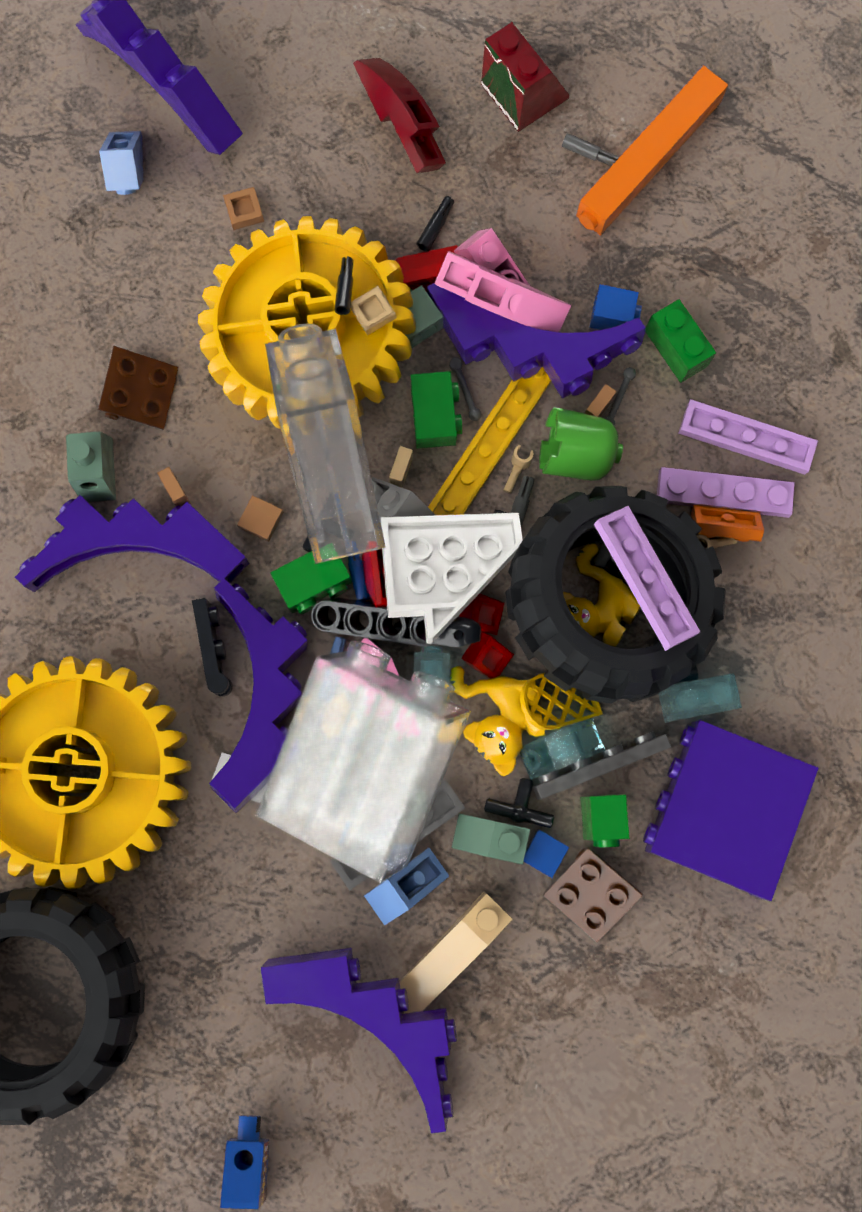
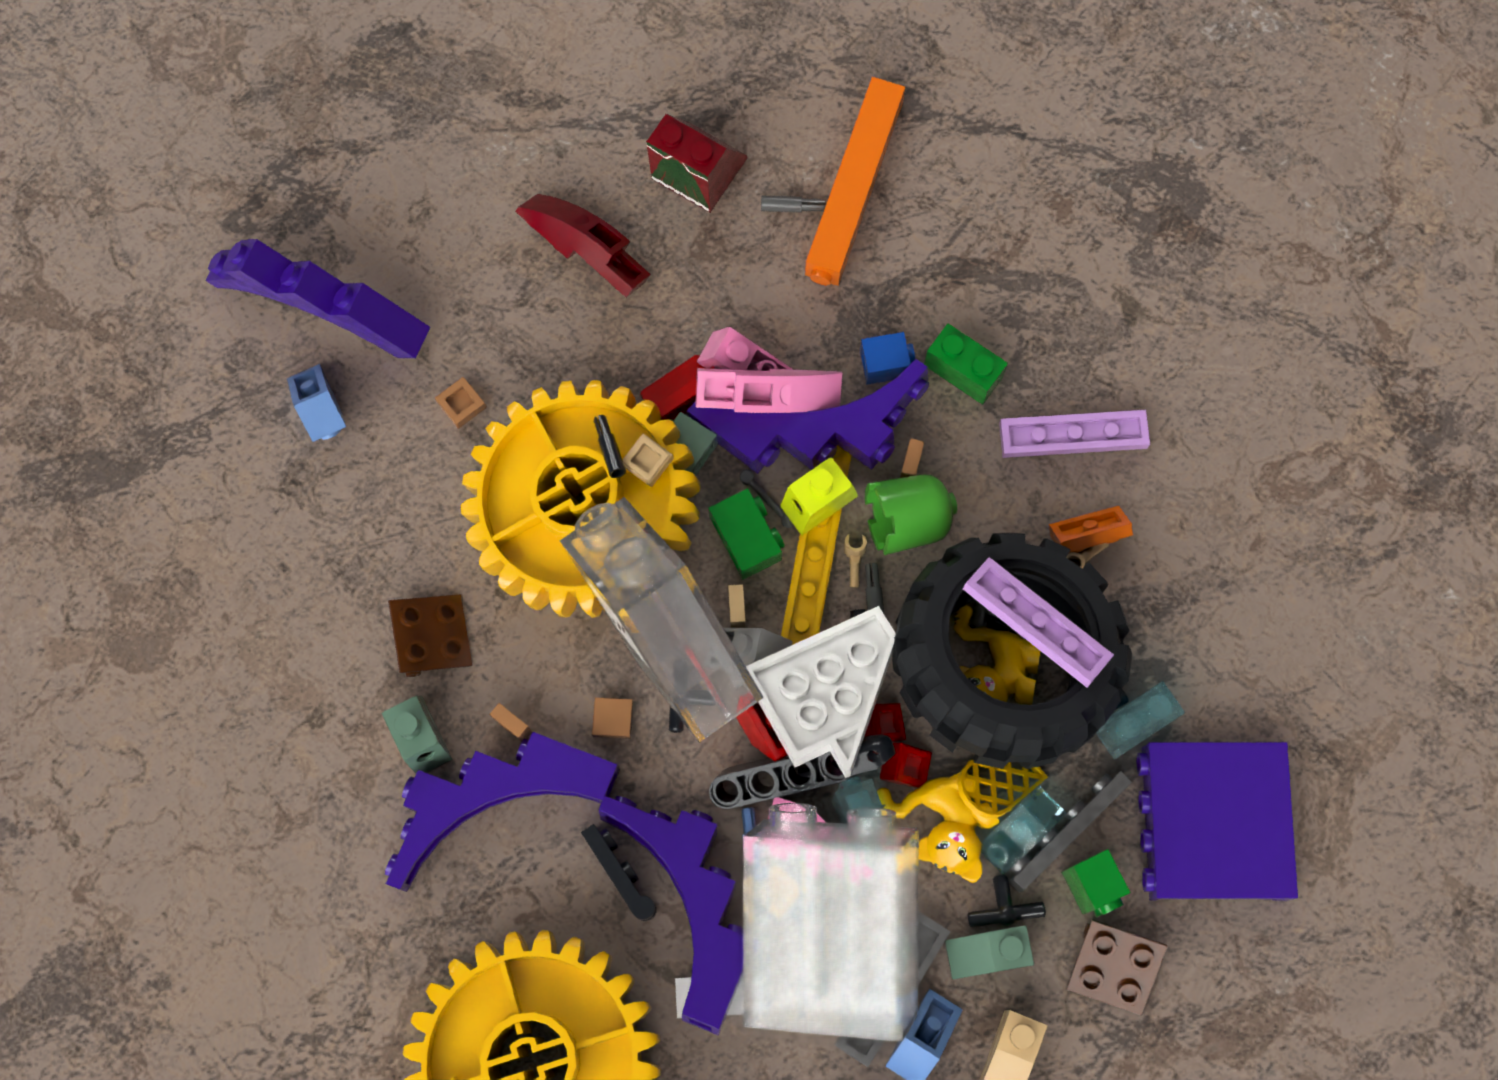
camera: 15 degrees left, 5 degrees down
(305, 582) = (690, 763): green brick -> none
(358, 579) = (741, 741): blue pin -> none
(435, 225) = (665, 341): black pin -> none
(508, 400) = (818, 494): none -> neon yellow torso
(545, 853) = (1050, 945): blue tile -> none
(629, 374) = (927, 417): dark grey hinge -> none
(726, 491) = (1075, 498): lavender plate -> none

